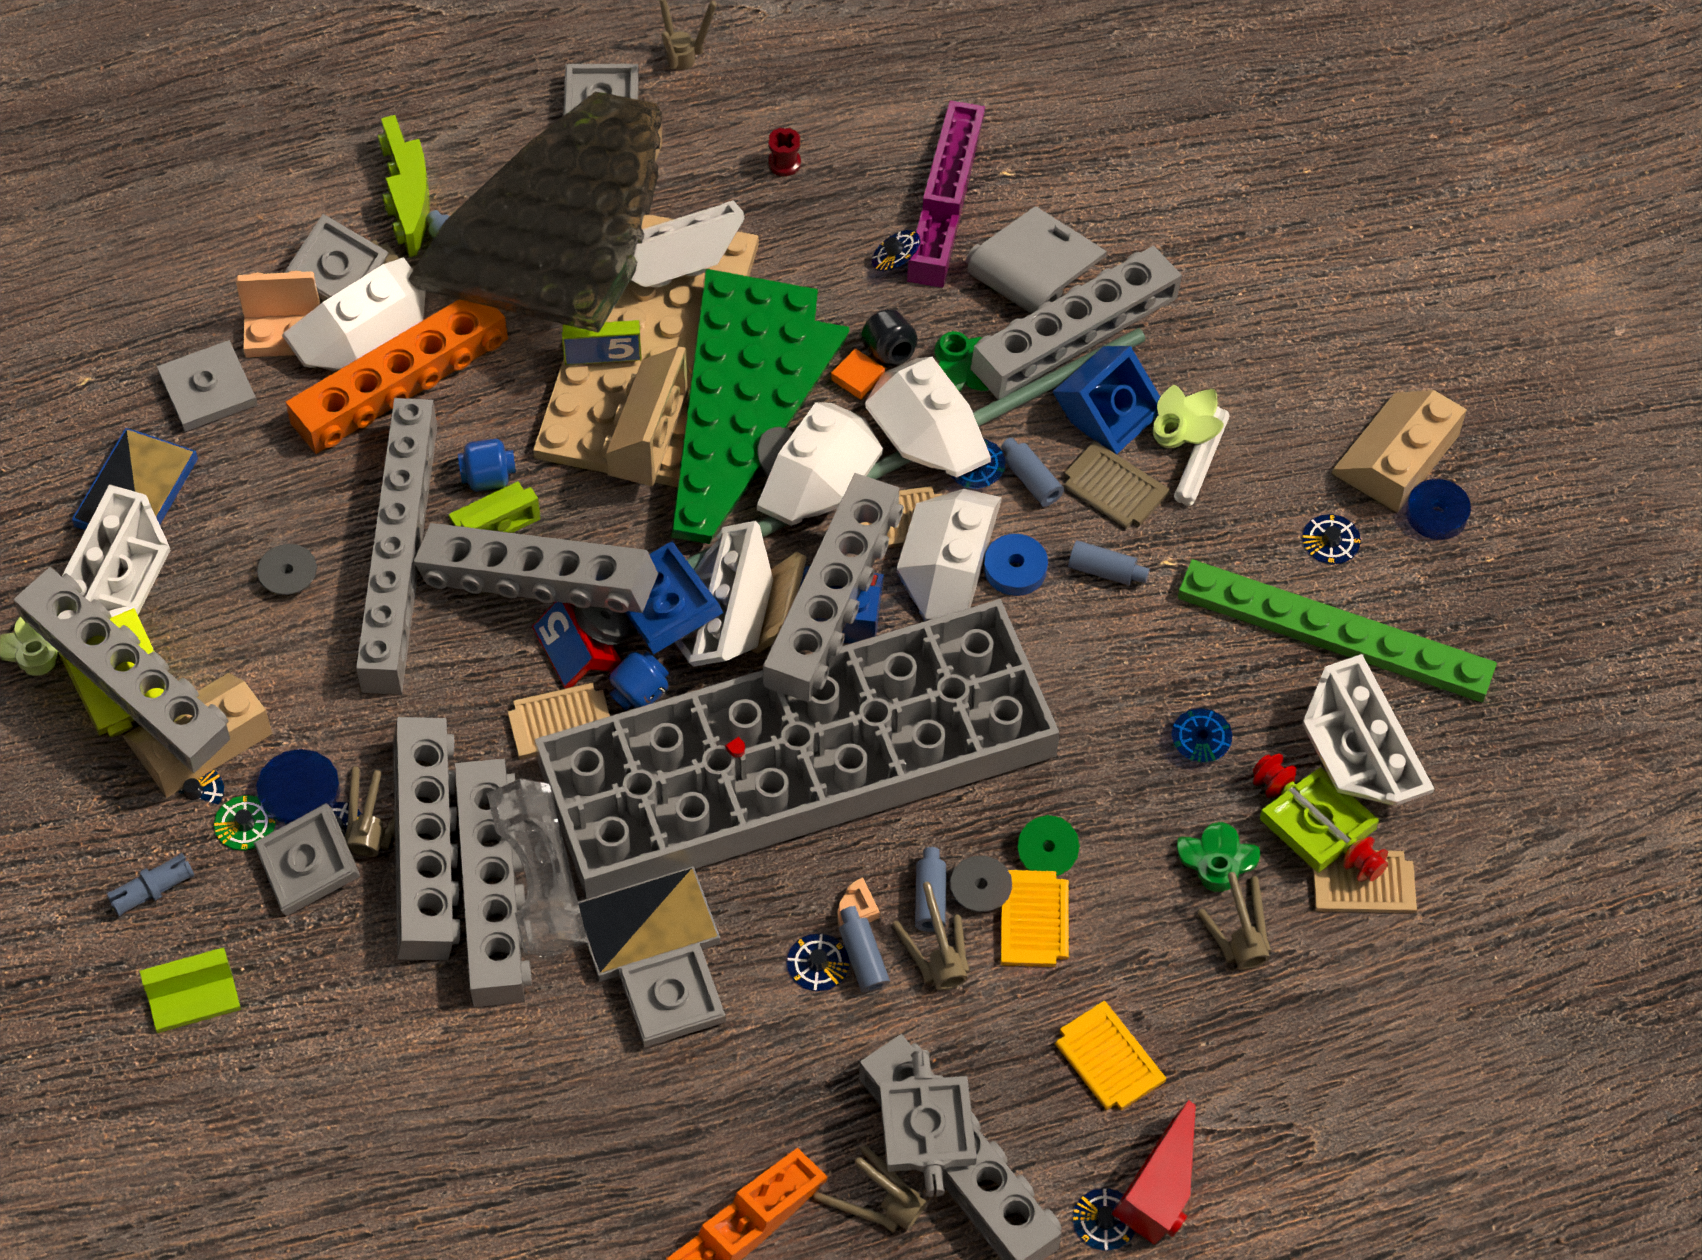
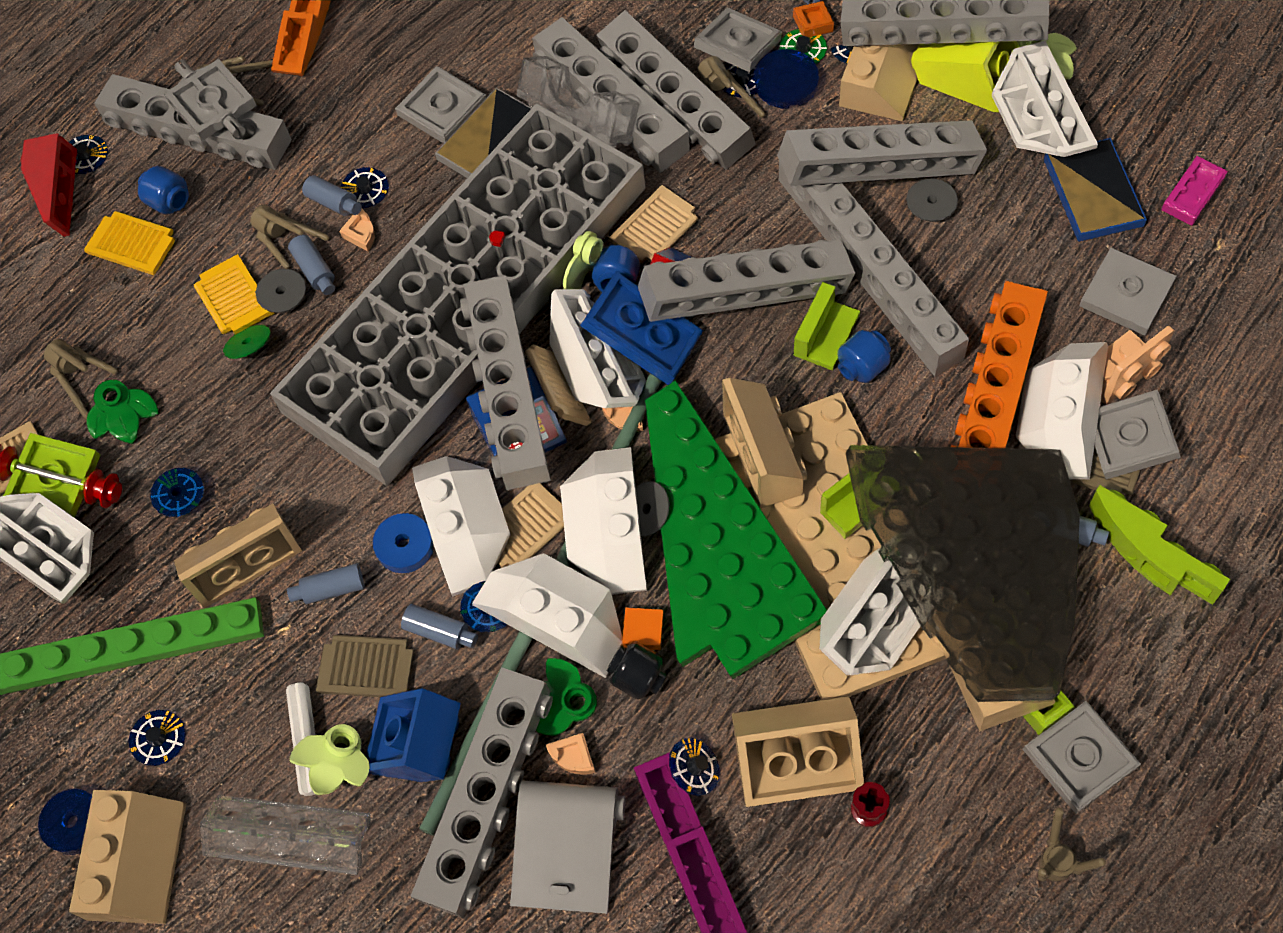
camera: 155 degrees right, 5 degrees up
(56, 426) = (1194, 190): none -> dark pink plate
(208, 839) = (813, 19): none -> orange tile
(304, 603) = (880, 152): none -> light grey brick
(659, 687) = (586, 253): none -> yellowish green plate
(805, 216) = (798, 751): none -> tan slope
(983, 319) = (572, 754): none -> light nougat tile
(1040, 1085) = (163, 190): none -> blue head
(1176, 622) = (237, 555): none -> tan slope
(1266, 383) = (282, 839): none -> clear fence

